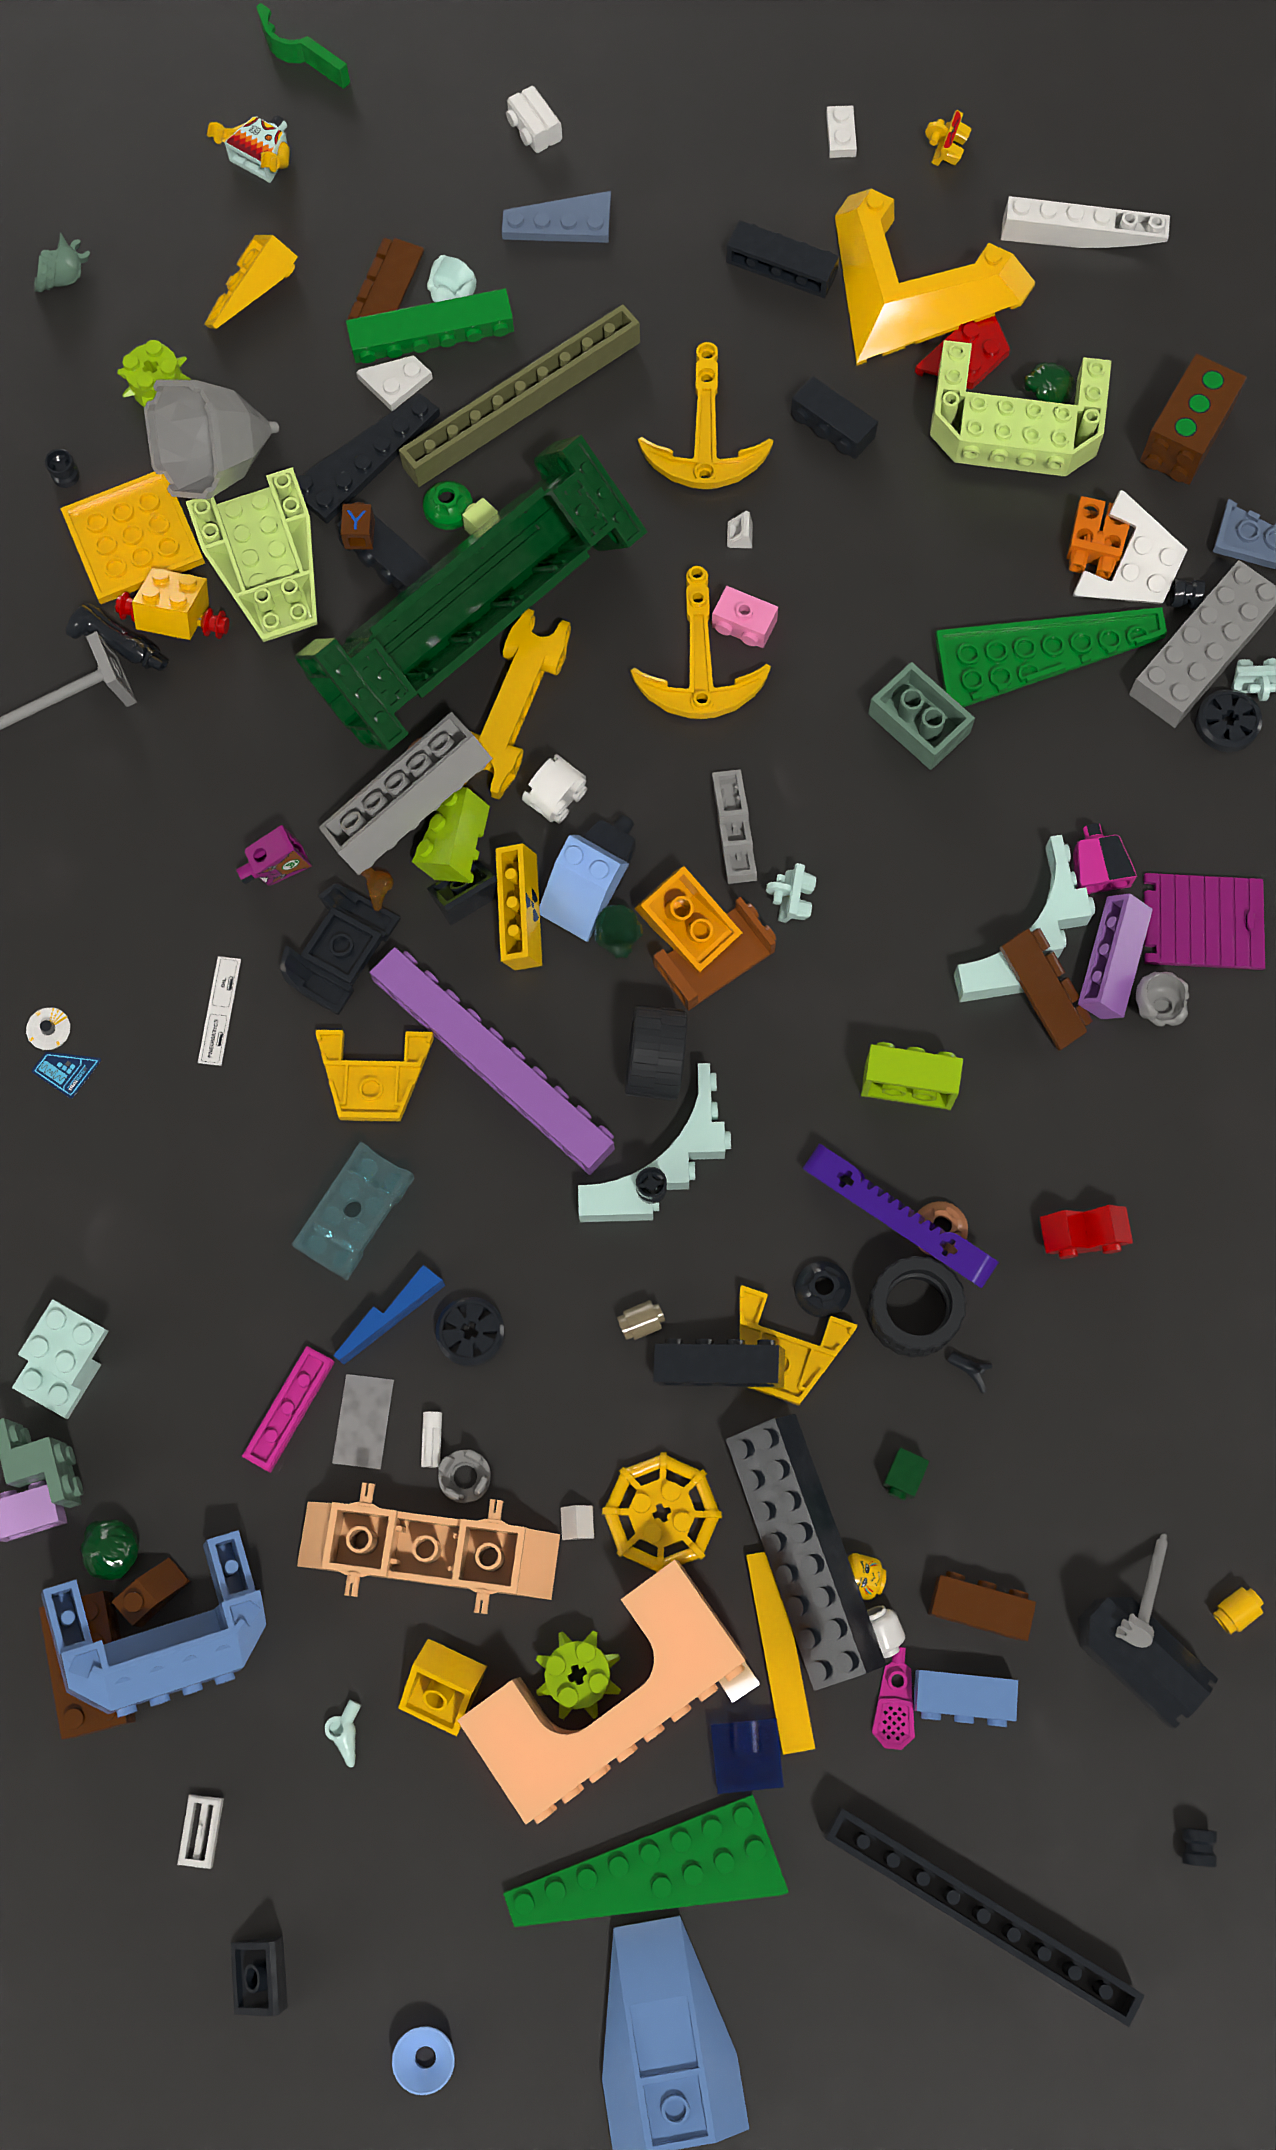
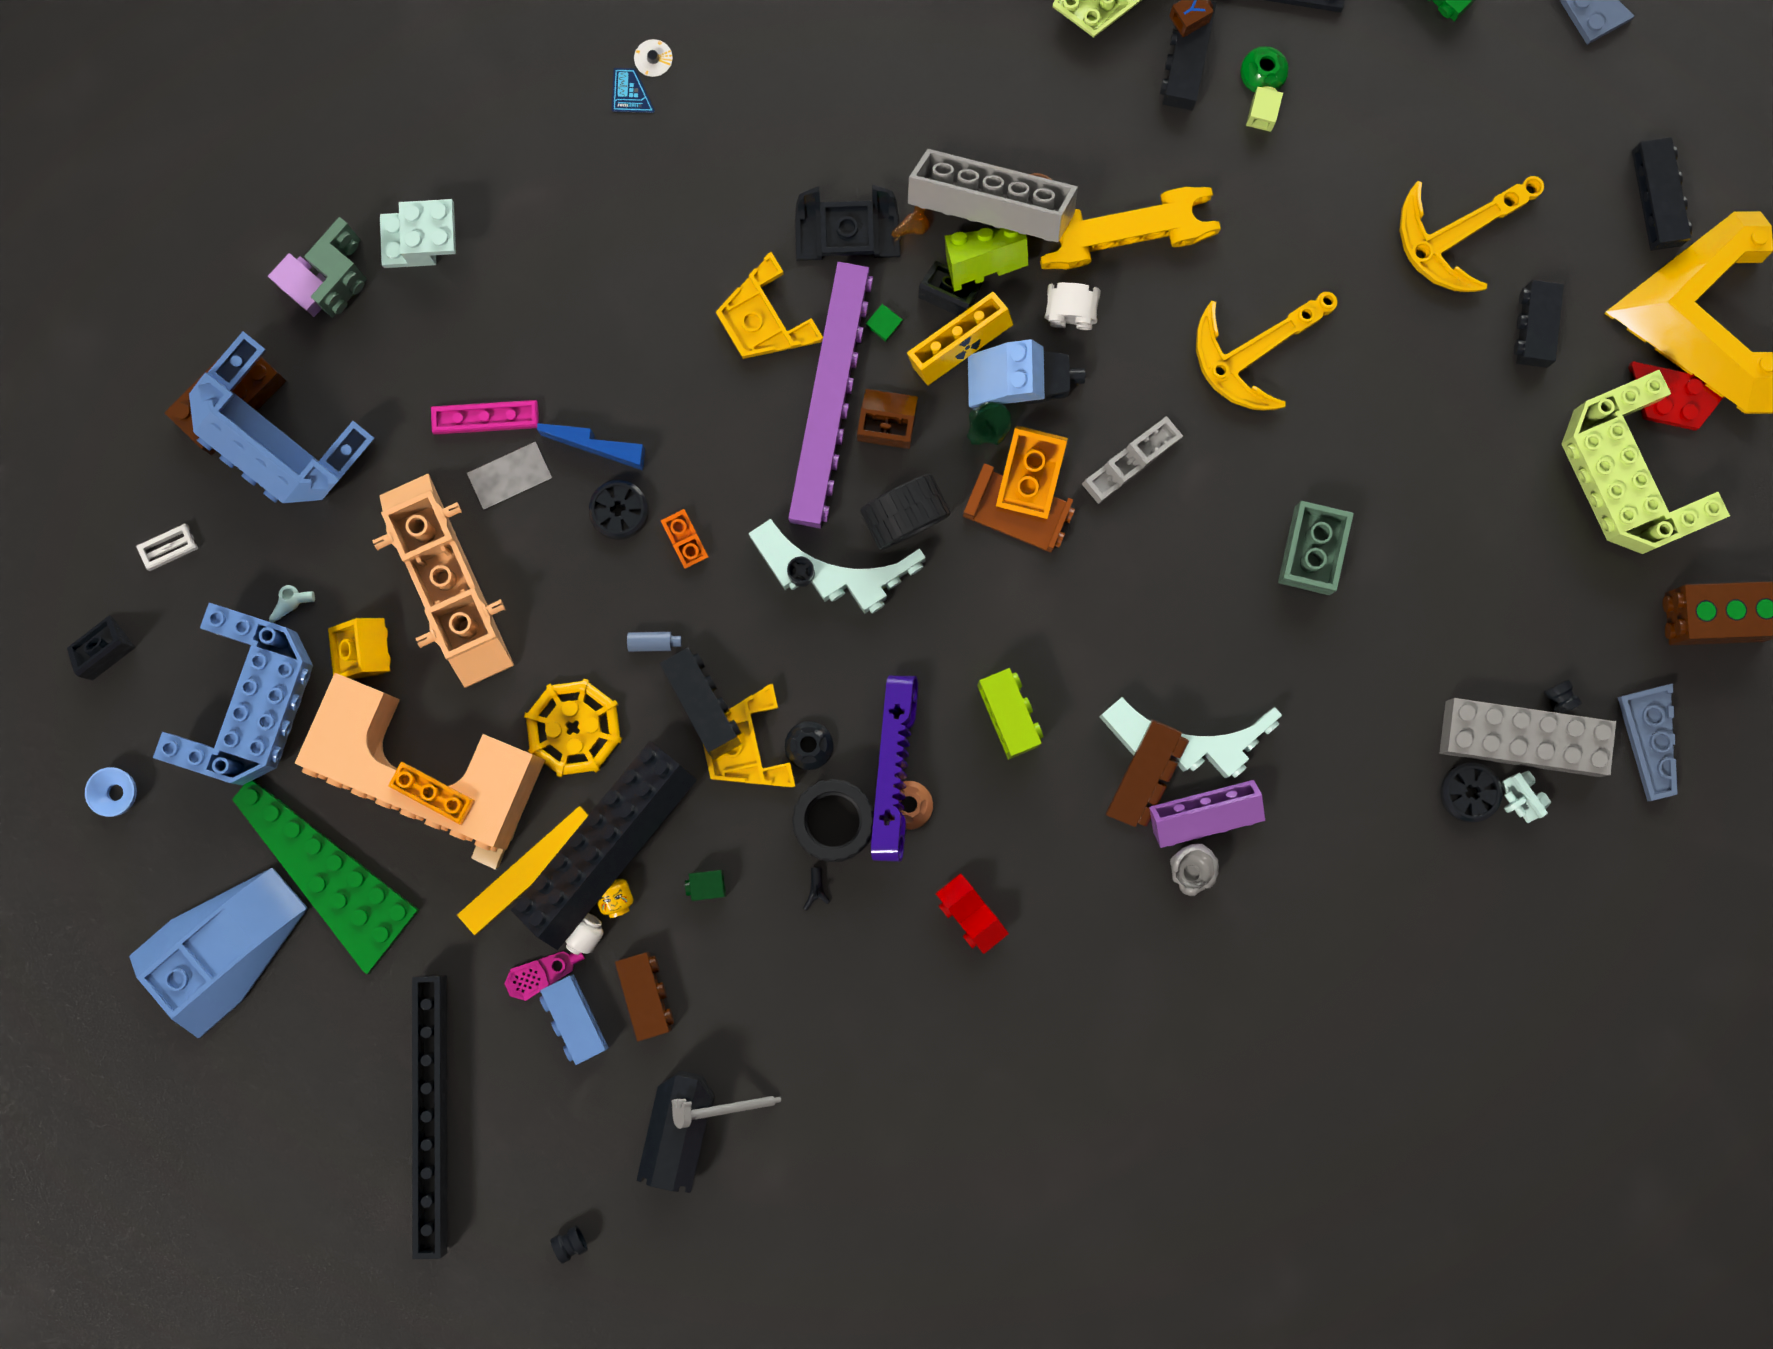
camera: 55 degrees right, 10 degrees up
(109, 1549) = (311, 358): dark green hair -> none
(151, 1592) = (299, 406): reddish brown slope -> none
(219, 1011) = (744, 172): white sticker -> none
(274, 858) = (883, 132): magenta torso -> none
(337, 1239) = (680, 371): clear light blue piece -> none
(431, 1439) = (524, 532): white piece -> none
(441, 1829) = (260, 707): none -> medium blue wedge
(452, 1463) = (509, 557): light grey piece -> none
(454, 969) = (884, 322): none -> green tile
(472, 593) = (1188, 138): dark green brick -> none
(520, 395) = (1395, 65): olive brick -> none
(540, 1285) = (684, 538): none -> orange slope
(551, 1019) = (887, 418): none -> reddish brown slope
(577, 1522) = (530, 672): white slope -> none
(596, 1681) = (439, 736): lime brick -> none
(624, 1378) = (652, 641): none -> sand blue cylinder
(641, 1320) = (701, 627): dark tan brick -> none
(667, 1679) = (444, 800): none -> light orange tile
(740, 531) = (1389, 312): white slope -> none
(744, 617) = (1313, 360): bright pink brick -> none
(747, 1755) = (440, 890): clear blue plate -> none
(787, 893) = (1093, 543): light aqua hips -> none
(1008, 656) = (1415, 587): green wing -> none
(1050, 383) = (1683, 480): dark green hair -> none
(1095, 545) = (1559, 599): orange hips -> none
(1102, 862) = (1281, 759): dark pink torso -> none
(1147, 562) = (1565, 650): white wing -> none
(1204, 921) = (1283, 866): magenta door -> none
(1238, 1610) = (755, 1183): yellow brick -> none

